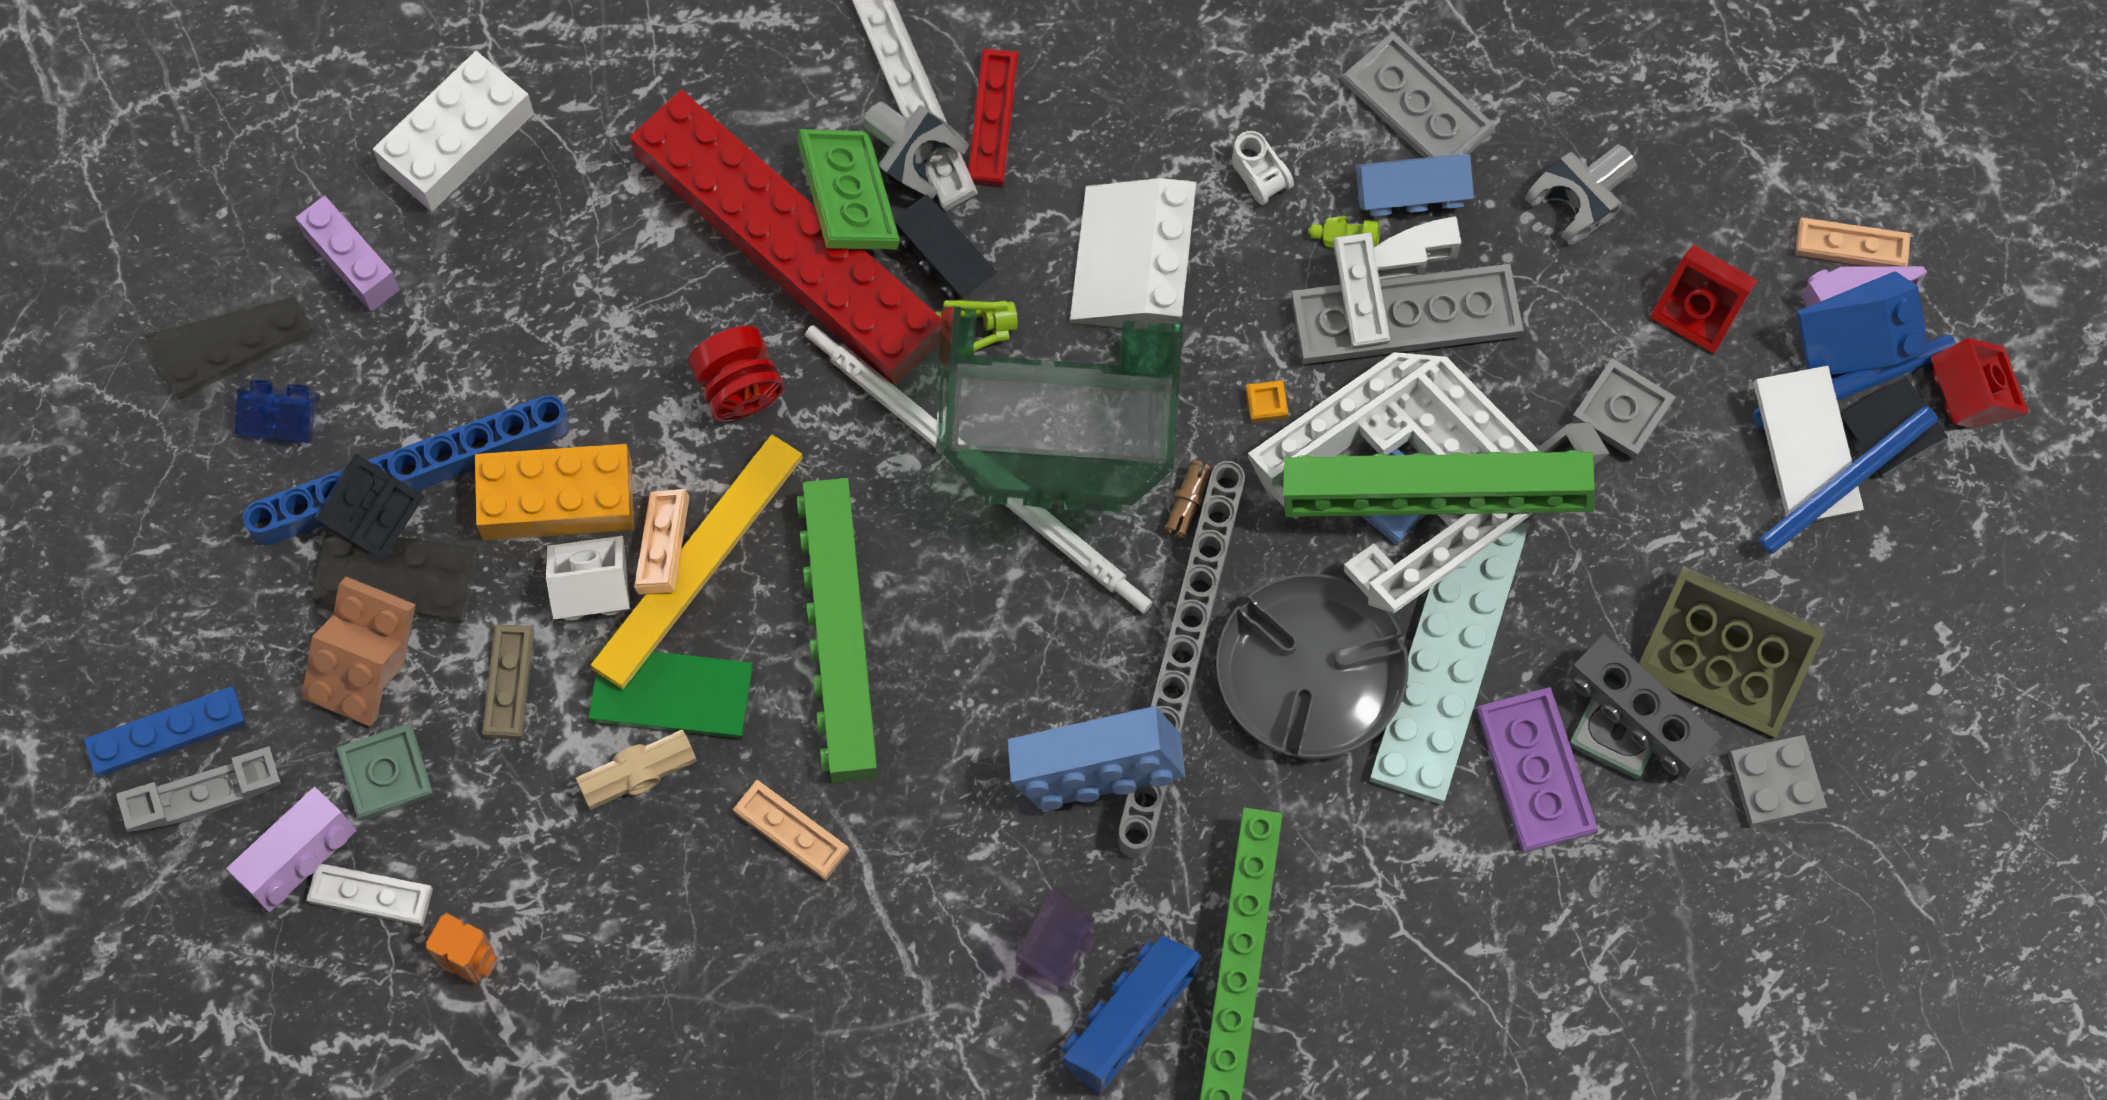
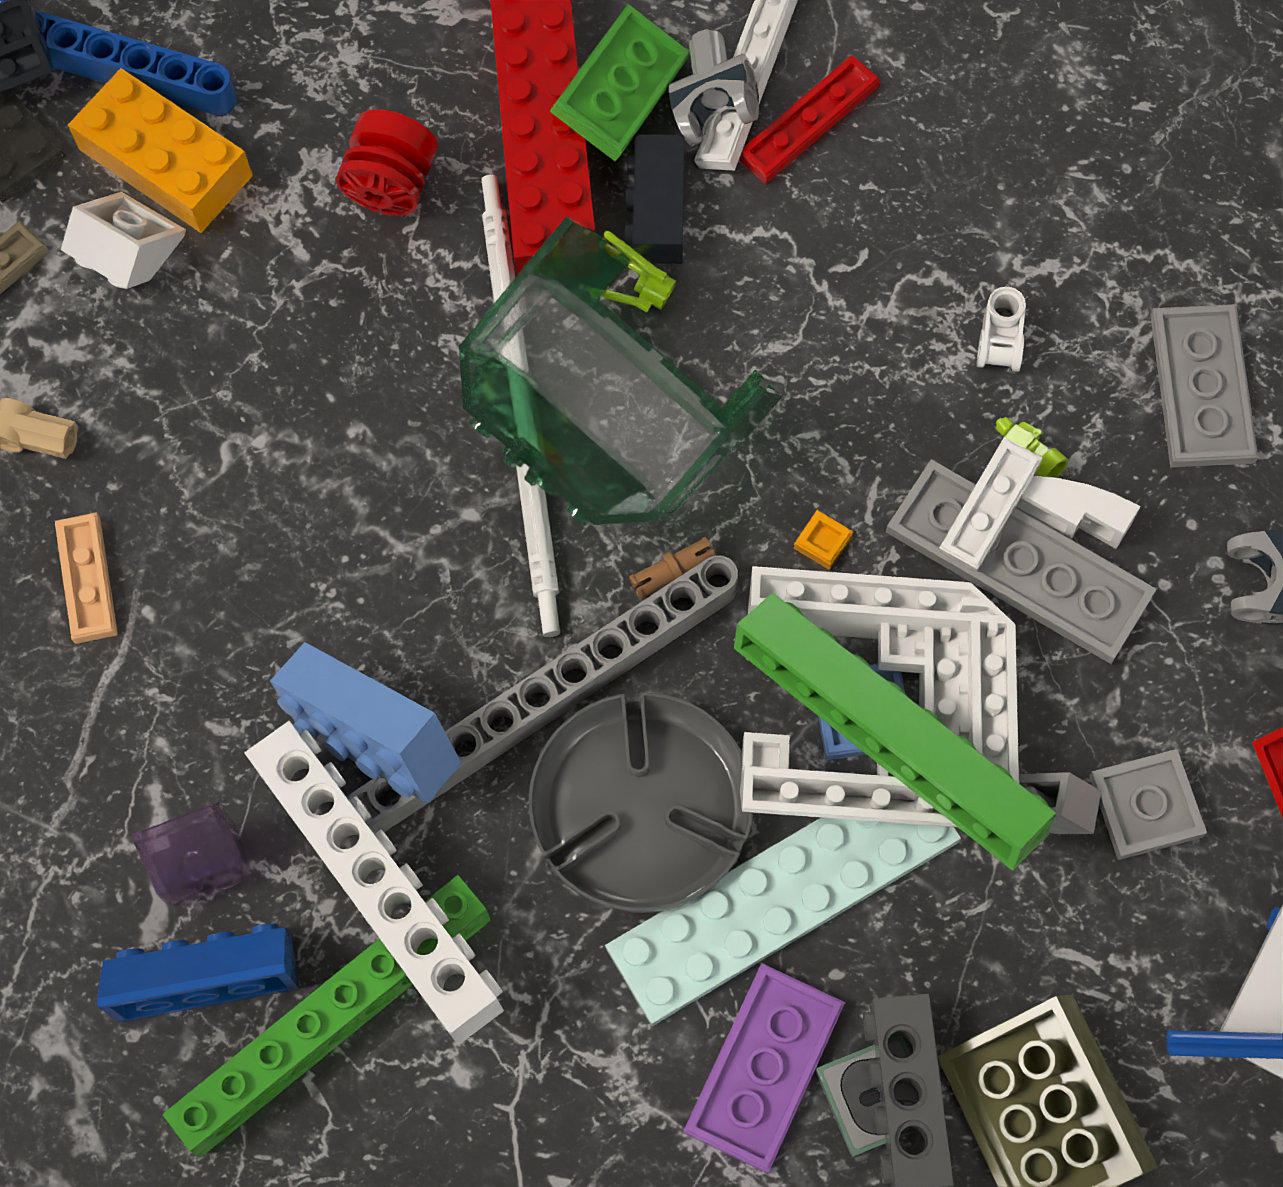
camera: 45 degrees right, 0 degrees up
(662, 542) = (204, 255): light nougat tile -> none
(678, 694) = (101, 386): green tile -> none
(698, 561) = (218, 294): yellow tile -> none
(839, 631) = (274, 443): bright green brick -> none
(1133, 253) = (824, 325): white slope -> none
(1252, 874) = (460, 1010): none -> white brick
(1415, 183) = (1130, 450): medium blue brick -> none

